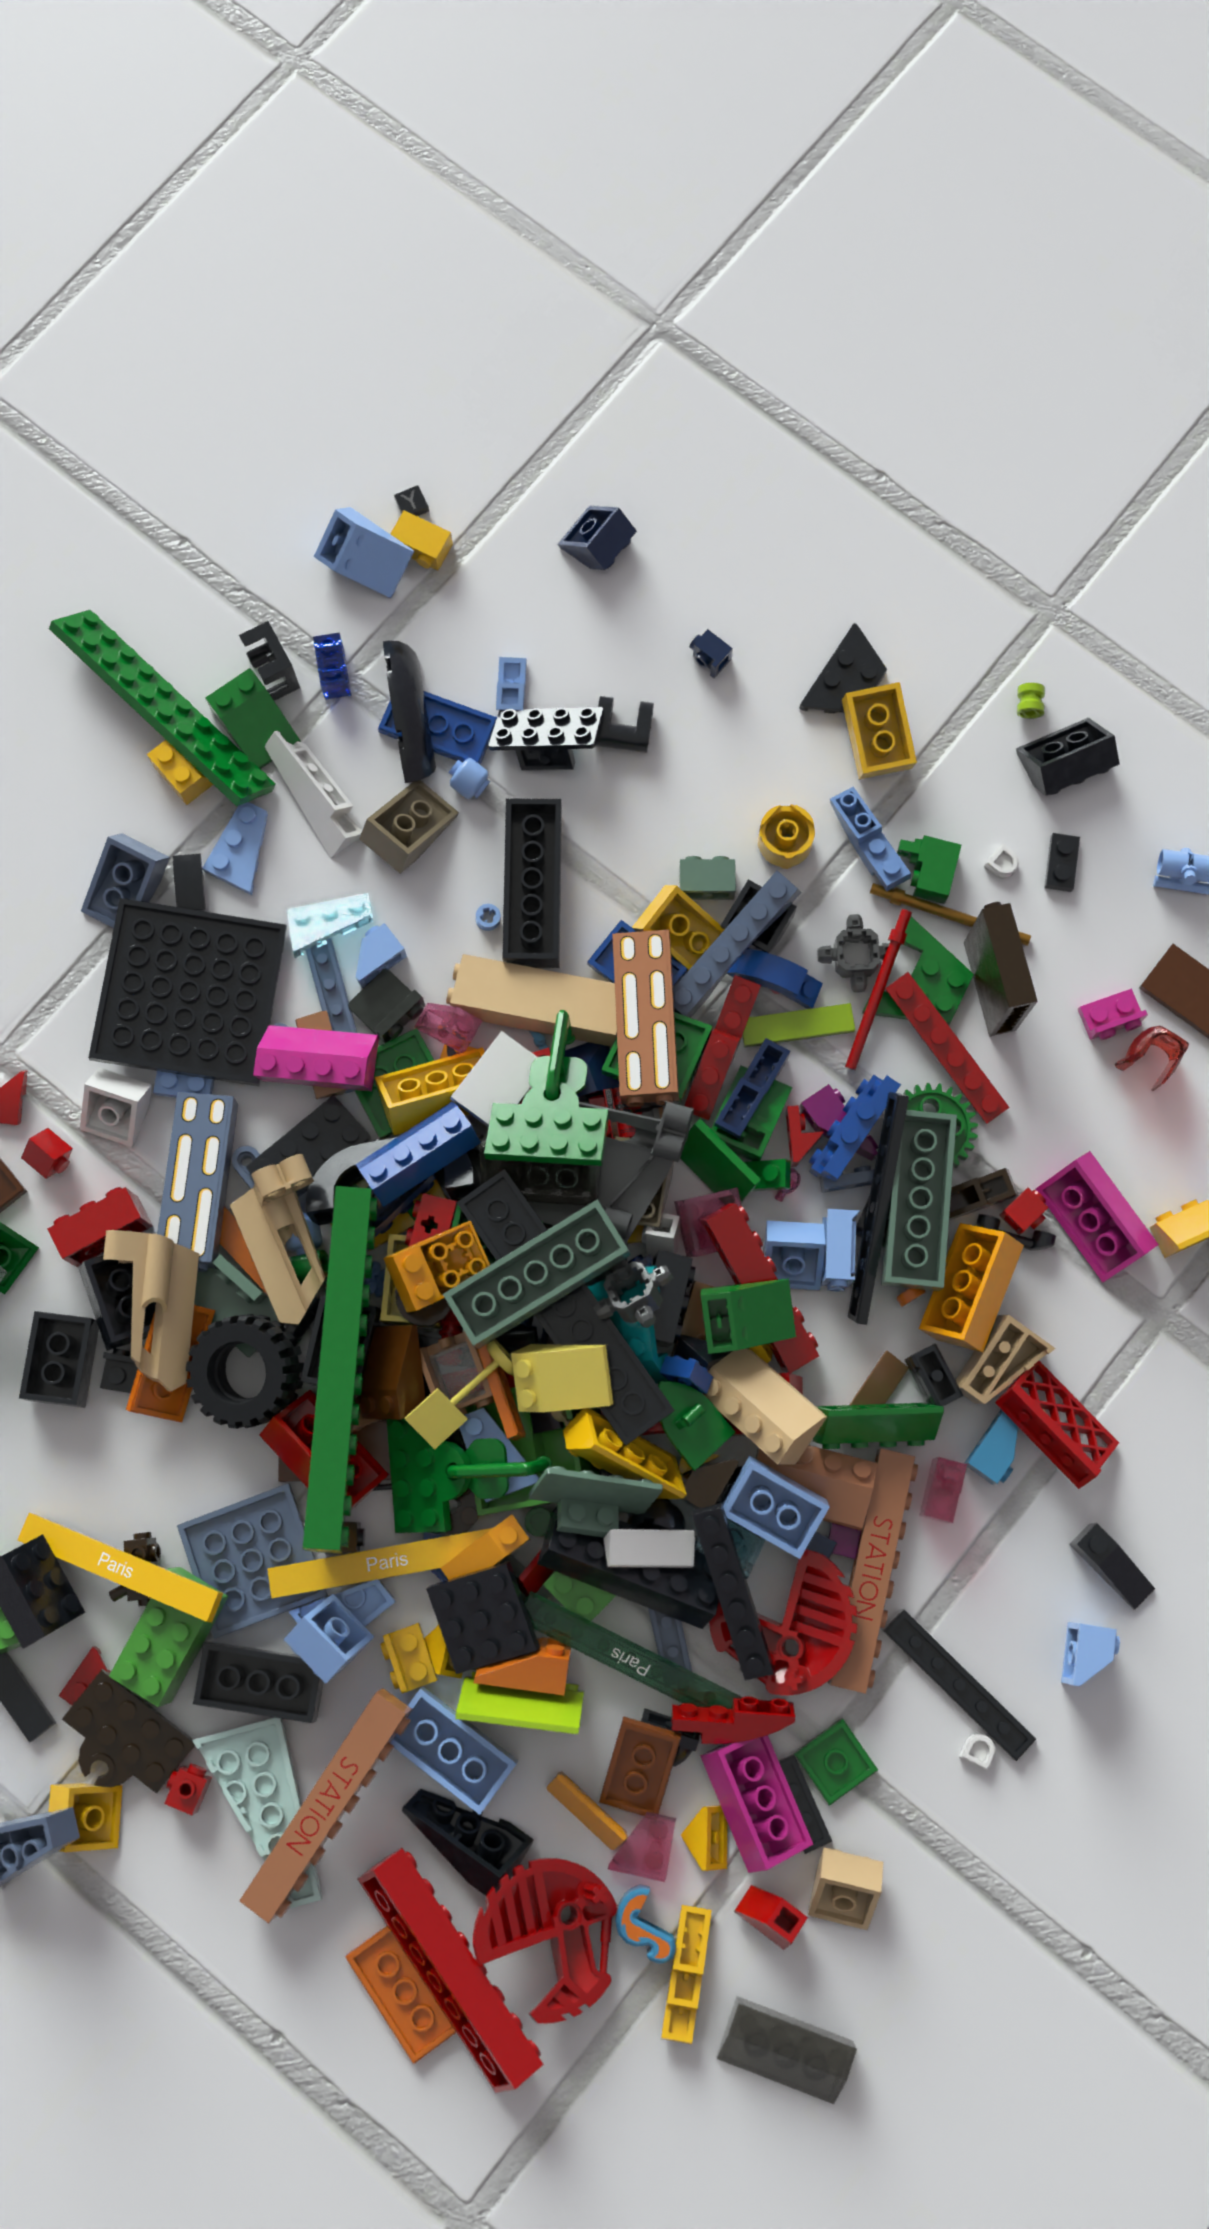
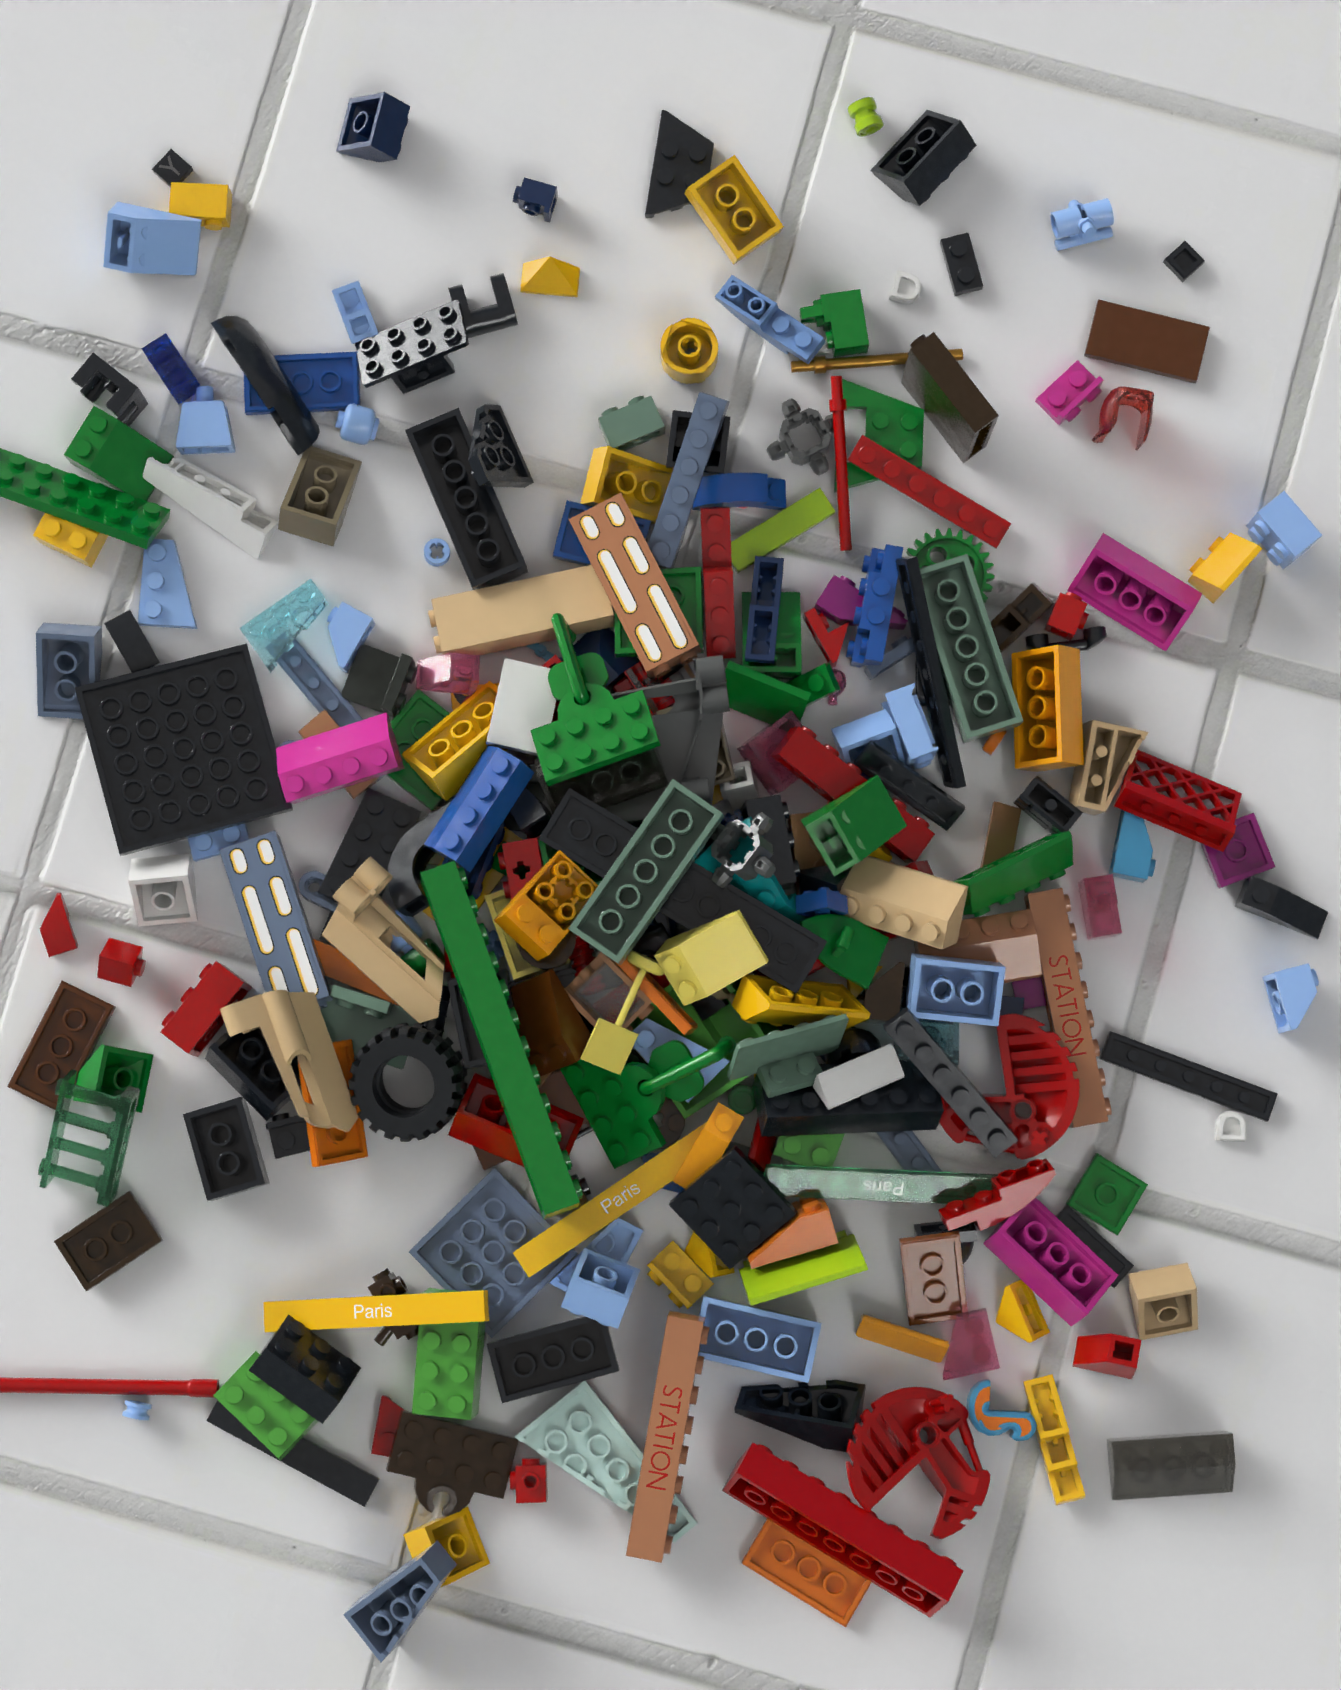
camera: 25 degrees left, 5 degrees up
(337, 725) = (204, 425): none -> light blue torso
(575, 851) = (494, 451): none -> black plate
(693, 724) = (550, 277): none -> yellow slope
(815, 1302) = (909, 785): none -> black tile
(1097, 1501) = (1244, 855): none -> magenta plate

